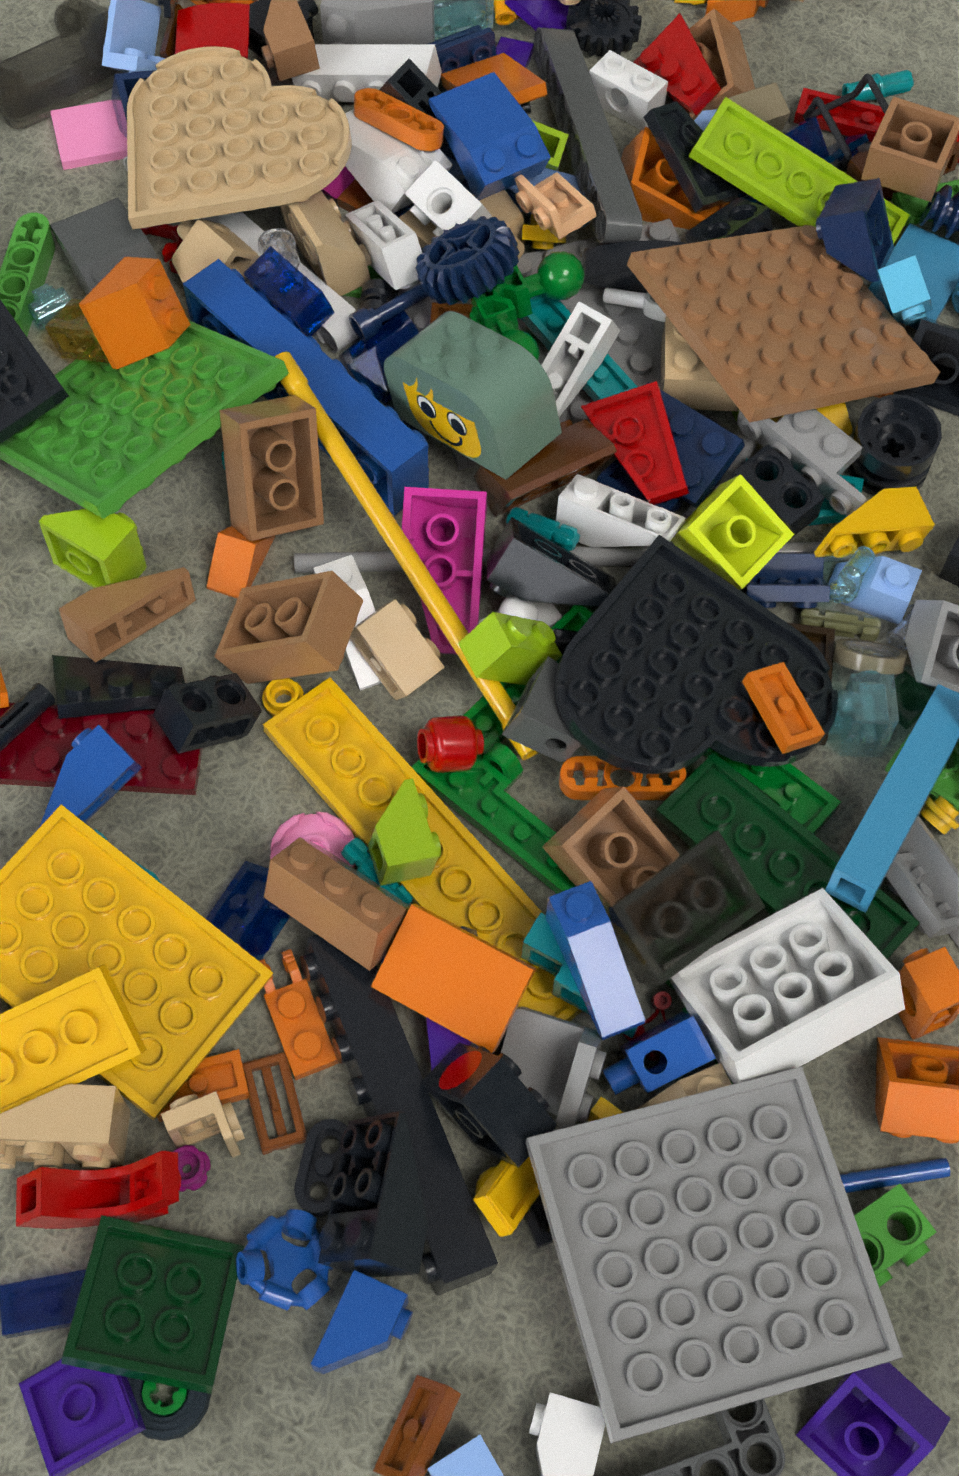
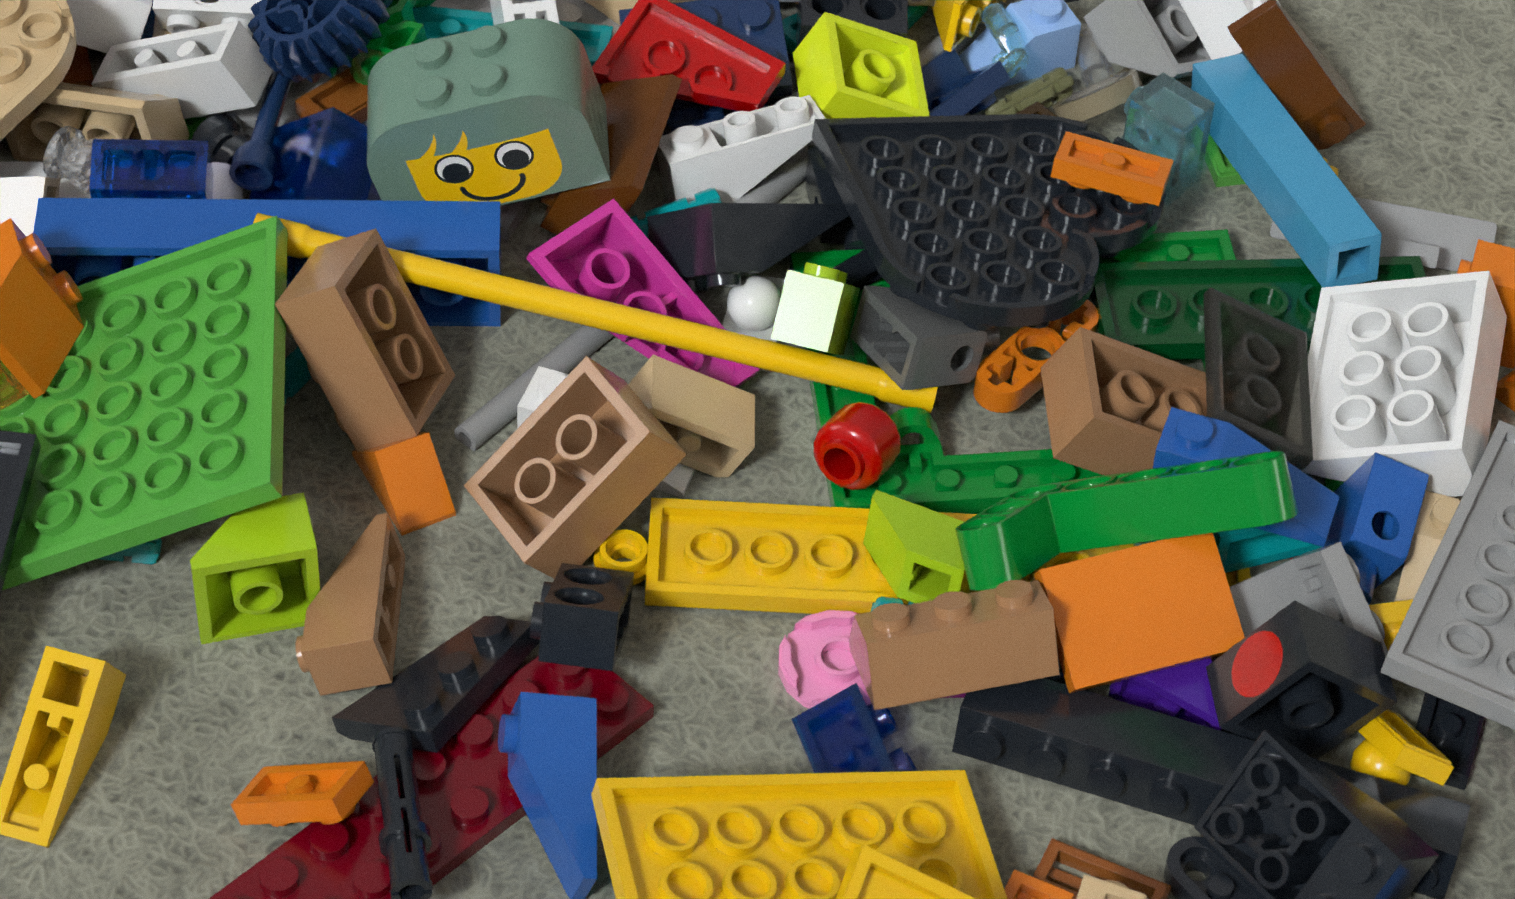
camera: 50 degrees left, 15 degrees down
(298, 1022) = (1027, 805): orange hinge -> none
(501, 903) = (1123, 509): none -> green beam

